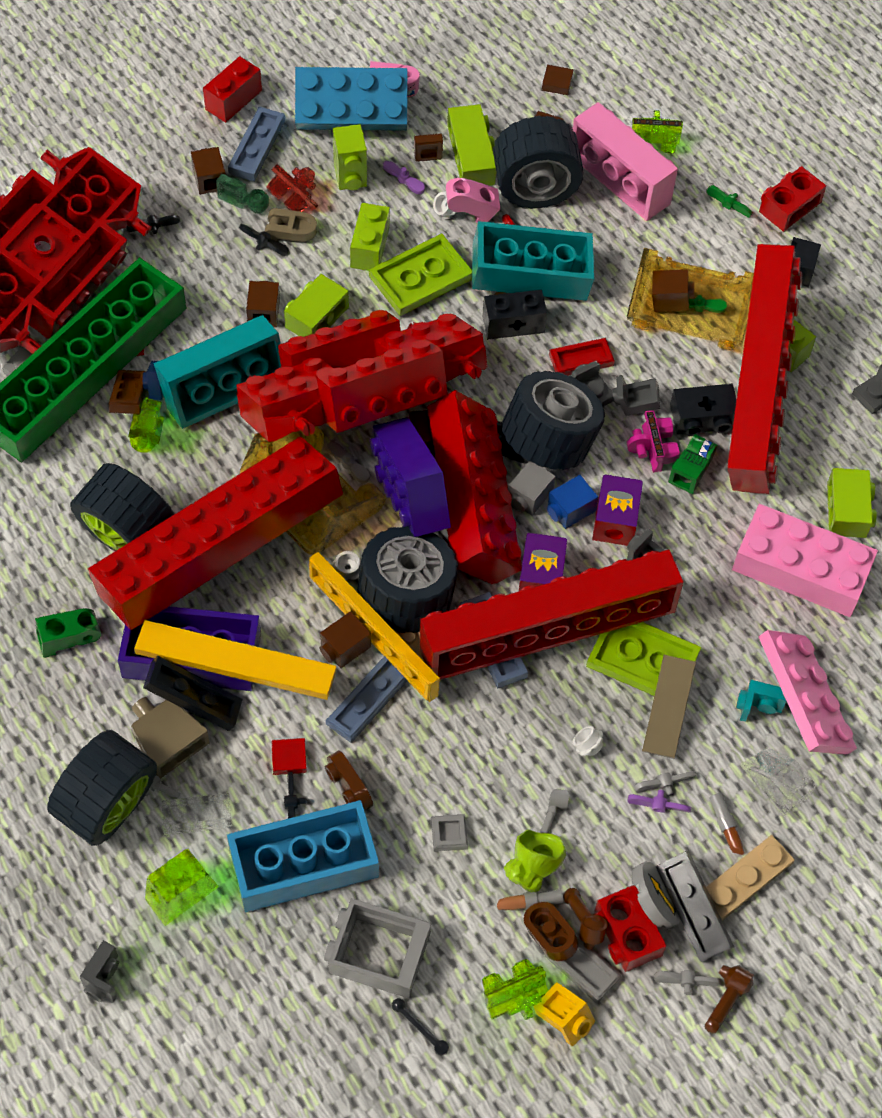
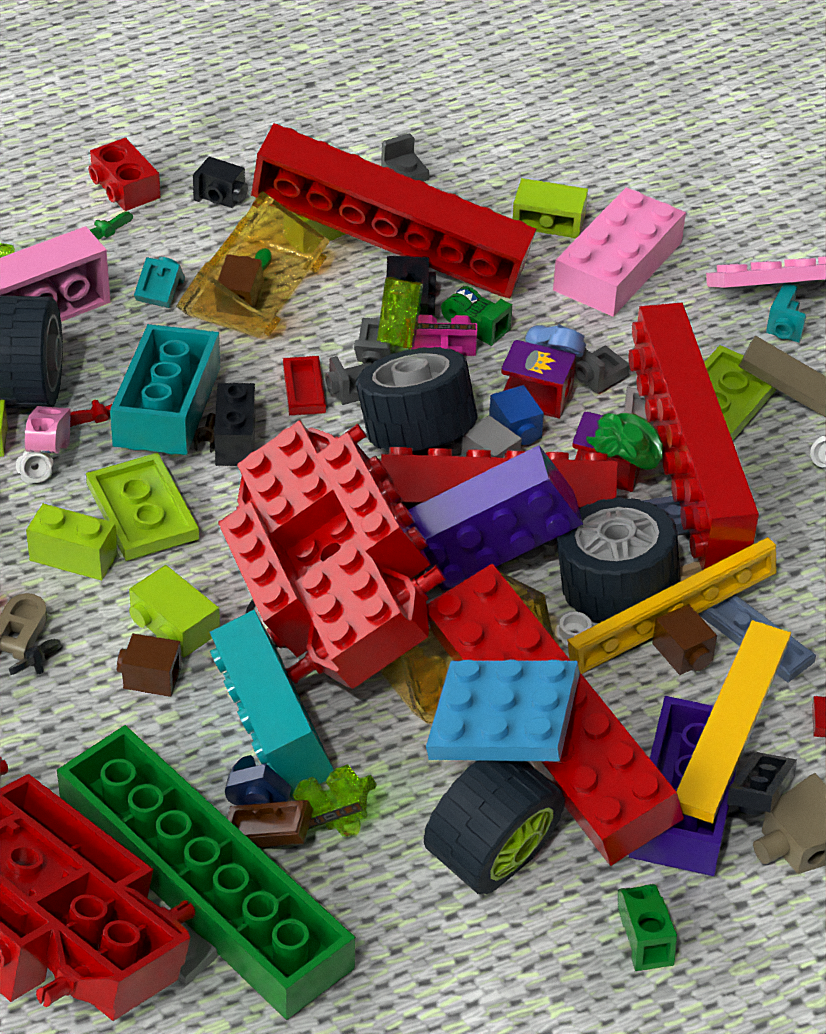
camera: 80 degrees left, 15 degrees down
(180, 485) = (503, 711): none -> dark azure plate
(531, 565) = (628, 438): none -> green hat
(645, 515) = (558, 338): none -> medium blue piece
(647, 393) = (399, 312): none -> clear neon green hips
(671, 242) = (158, 281): none -> teal bracket

